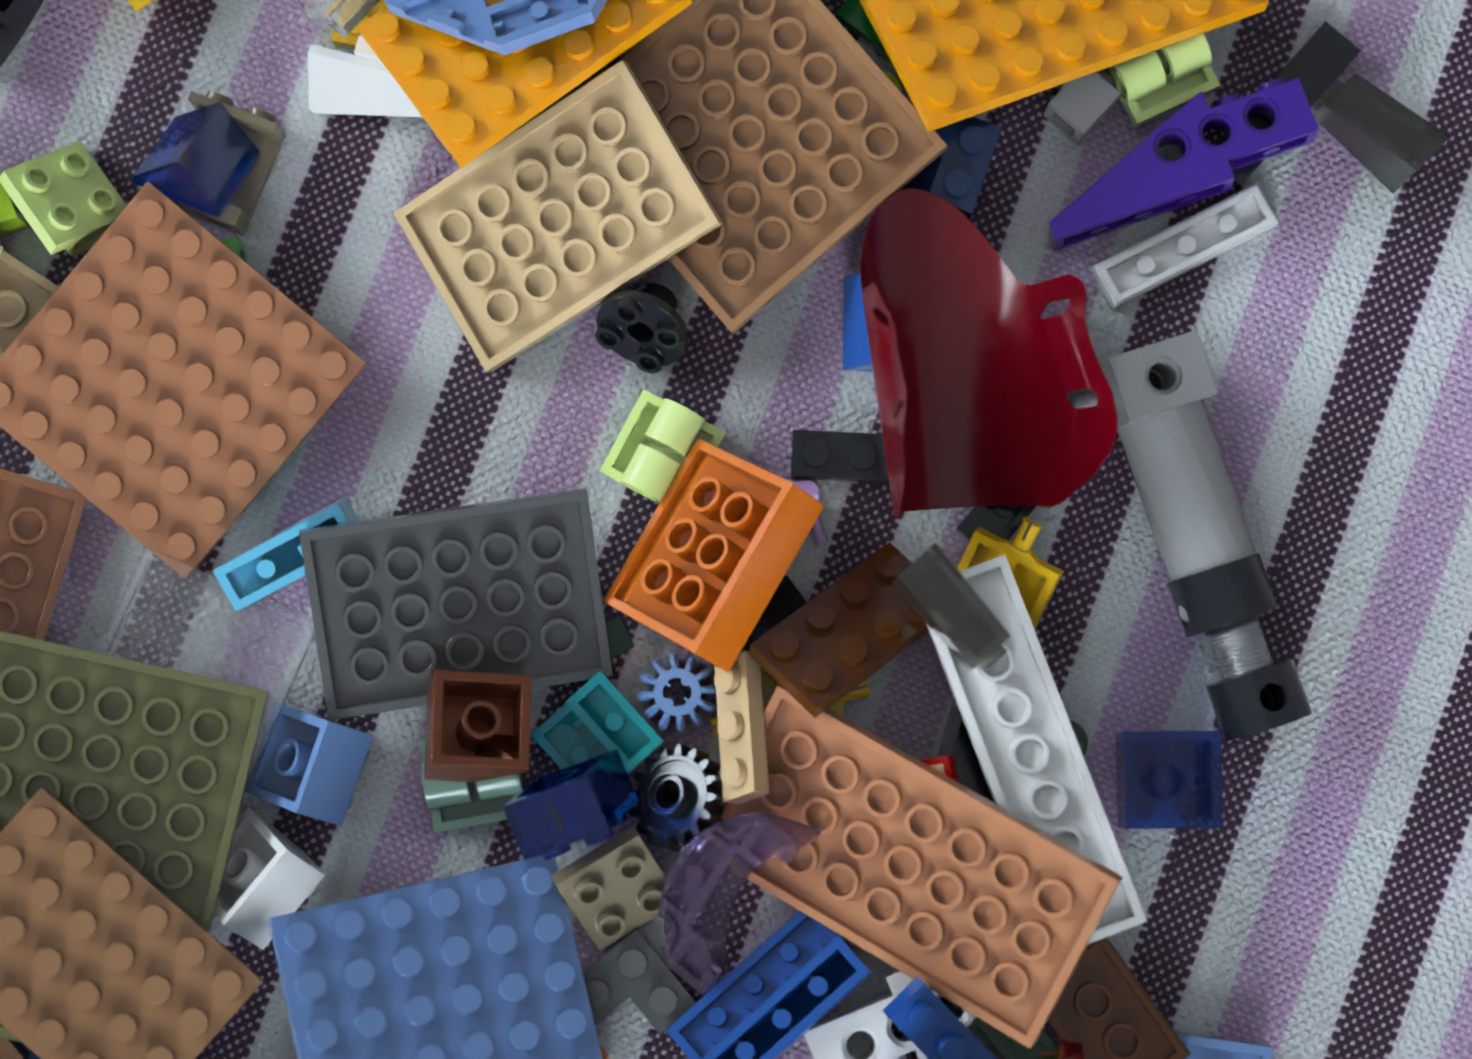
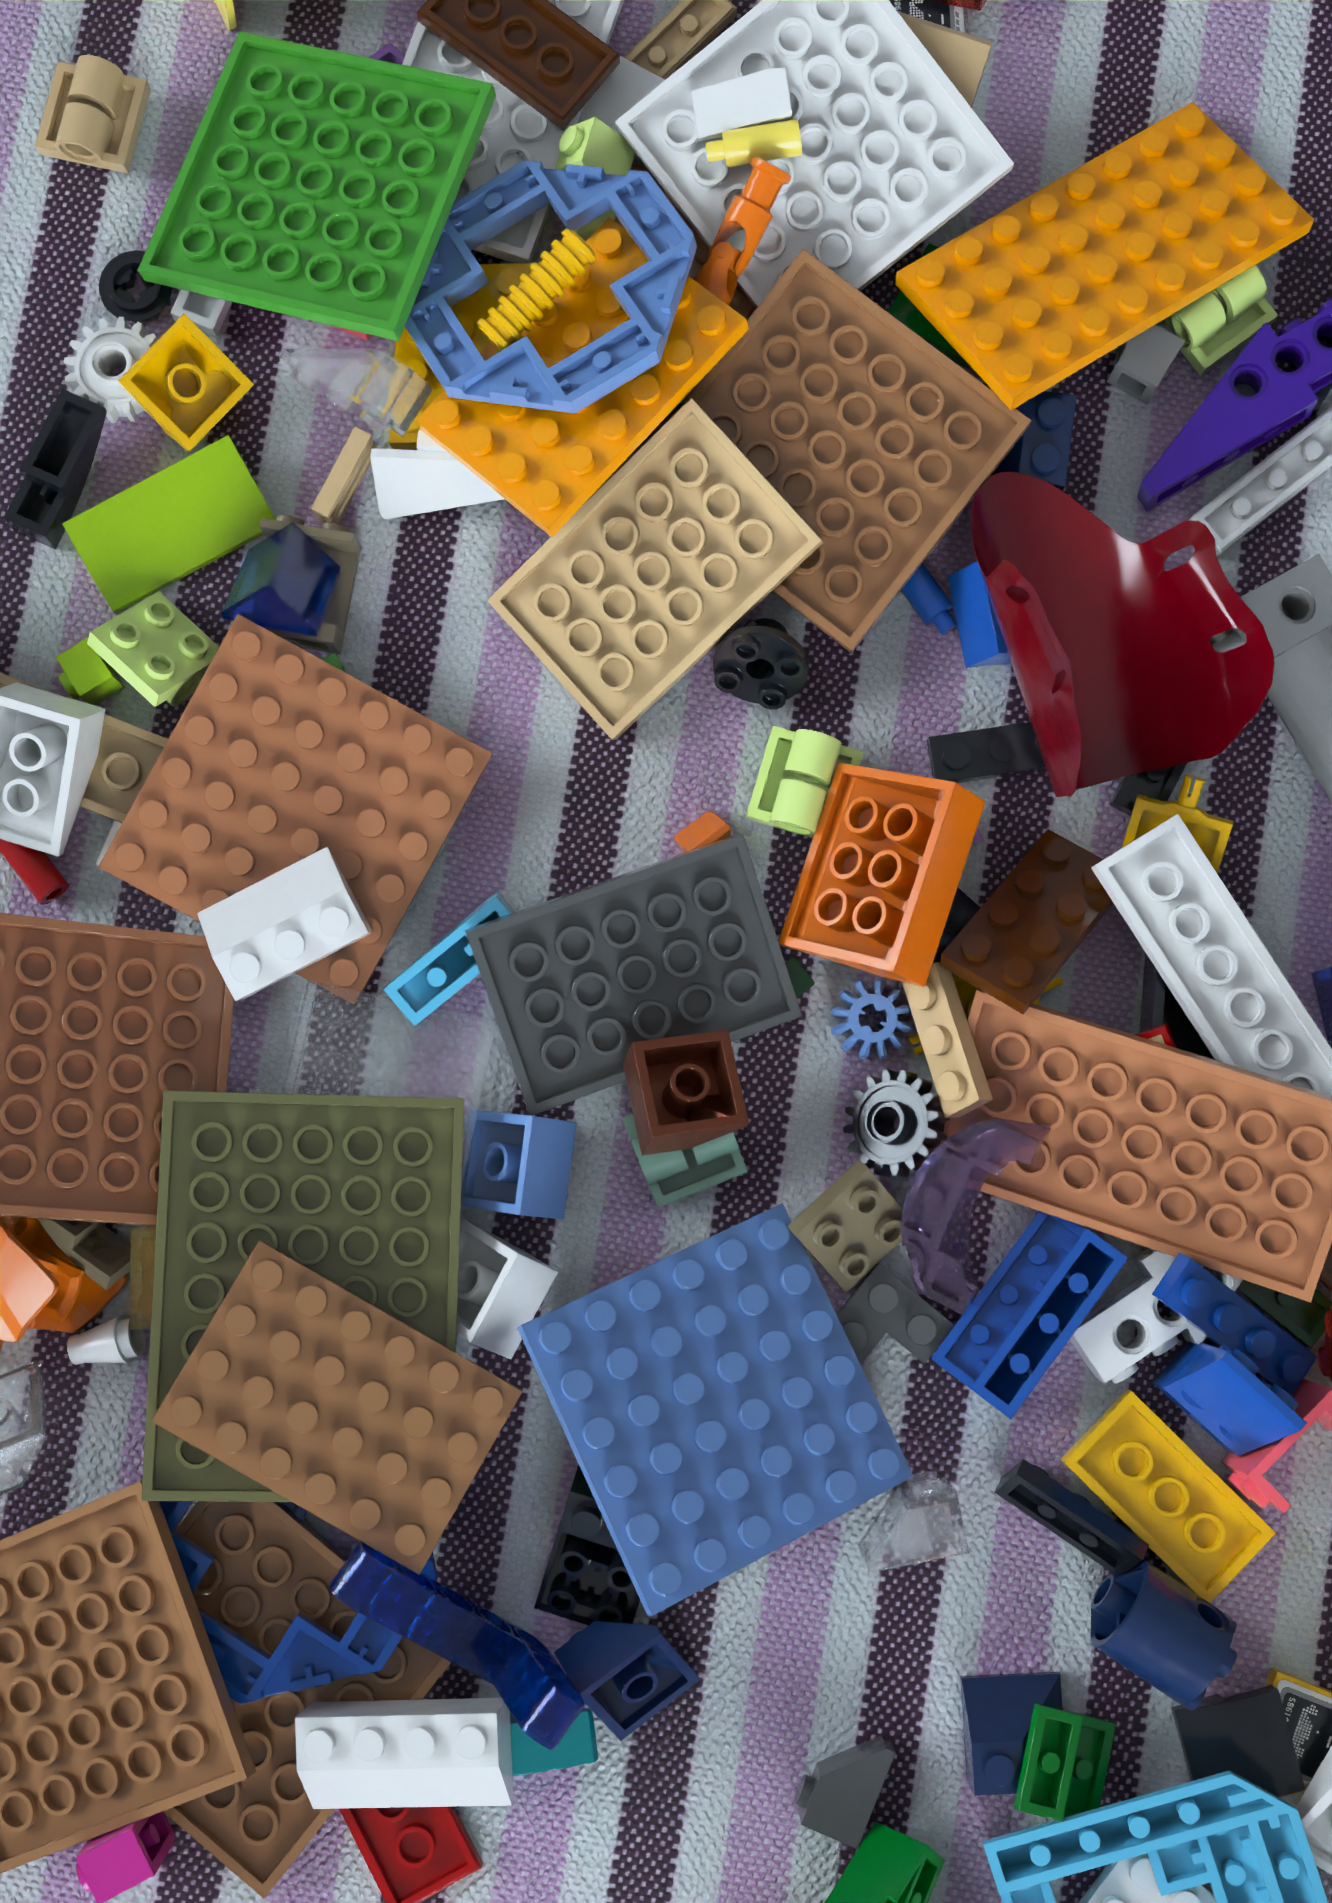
camera: 10 degrees left, 0 degrees up
(104, 78) = (169, 524): none -> lime slope
(129, 489) = (282, 924): none -> white slope
(280, 67) = (344, 478): none -> tan tile
(555, 479) = (702, 831): none -> orange slope
(571, 806) = (793, 1152): clear blue brick -> none
(594, 723) = (801, 1080): teal slope -> none
(822, 296) = (929, 600): none -> blue cylinder
(952, 609) = (1142, 875): clear smoke slope -> none

